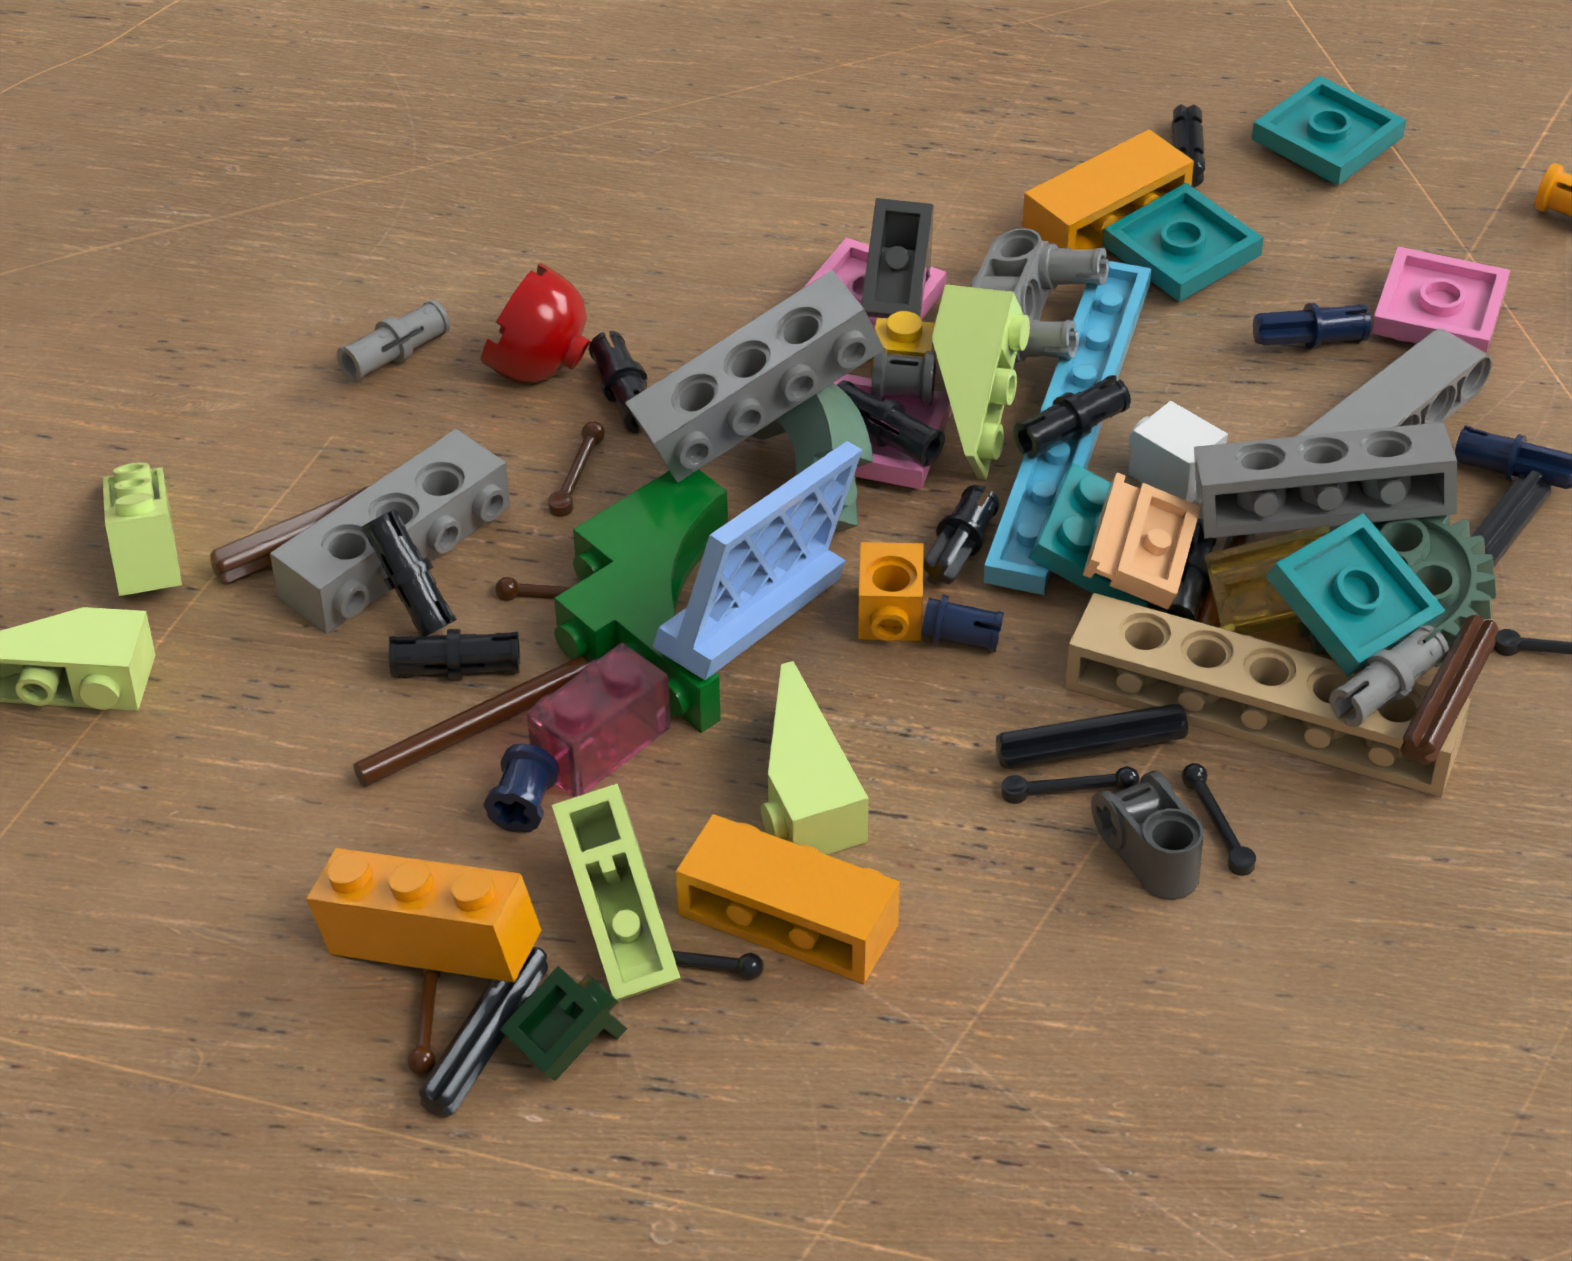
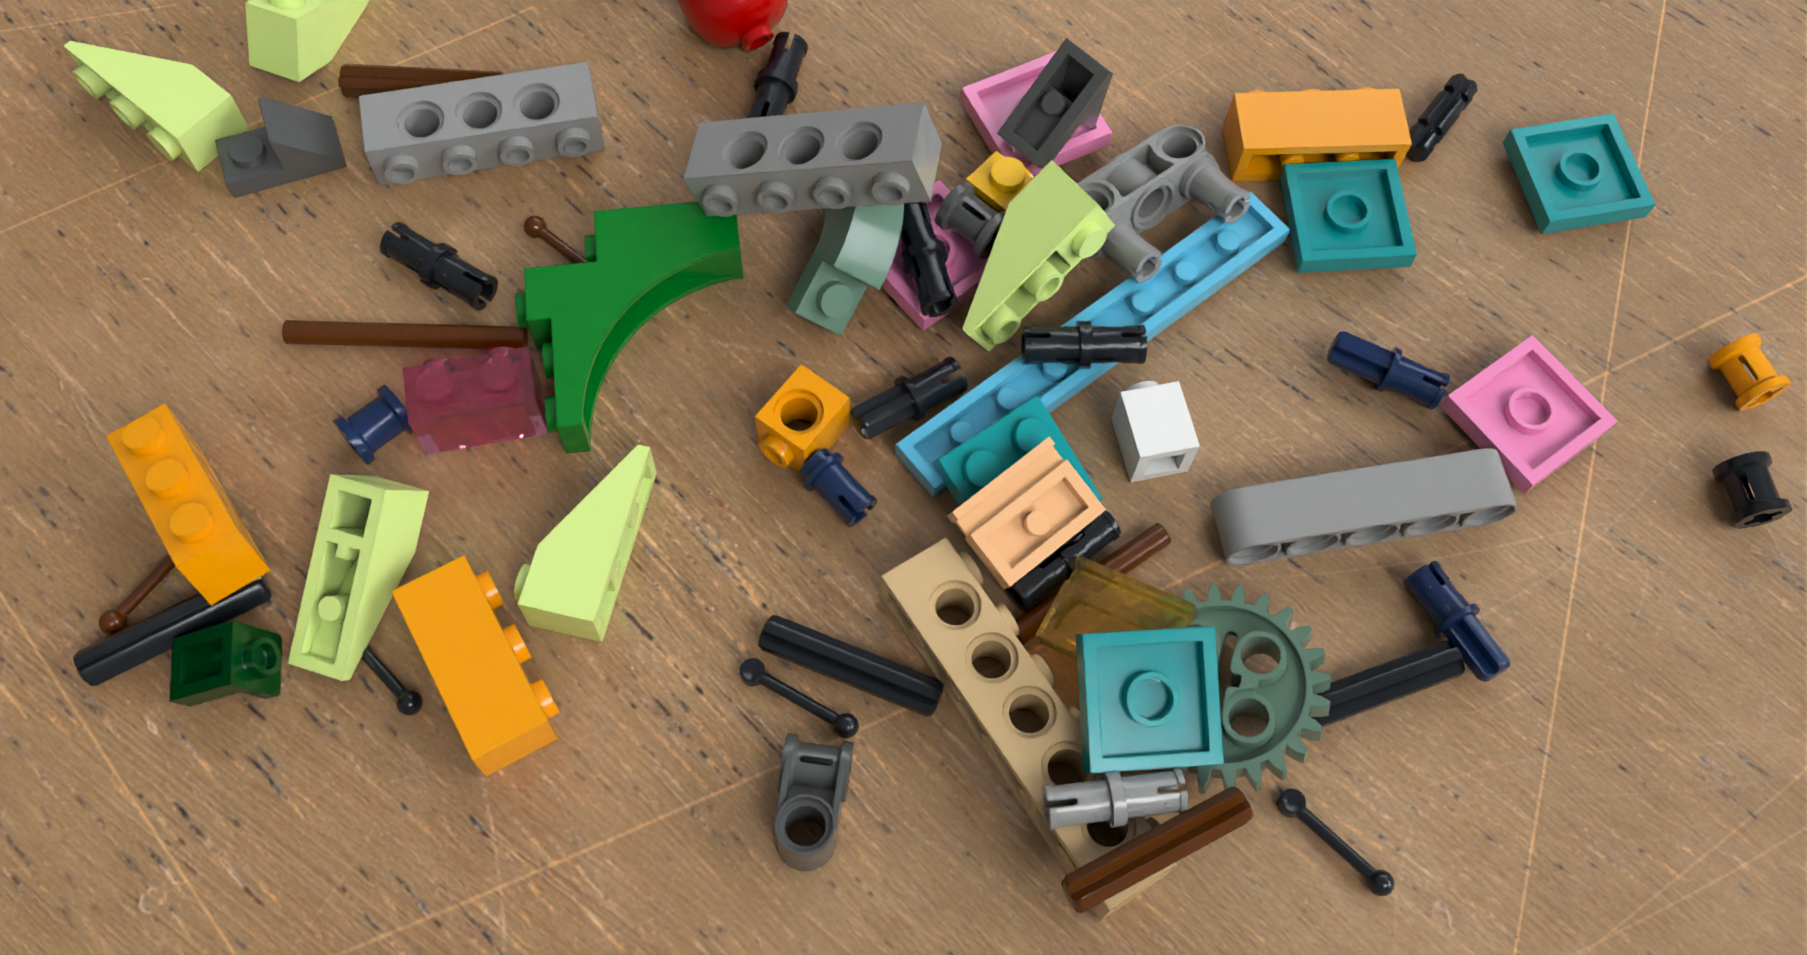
camera: 30 degrees right, 20 degrees up
(211, 652) = (286, 150): none -> dark grey slope
(408, 573) = (443, 176): black pin -> none
(561, 502) = (640, 170): reddish brown hinge -> none
(762, 567) = (681, 348): light blue fence -> none
(1241, 858) = (874, 867): black hinge -> none
(1325, 480) = (1231, 557): light grey brick -> none

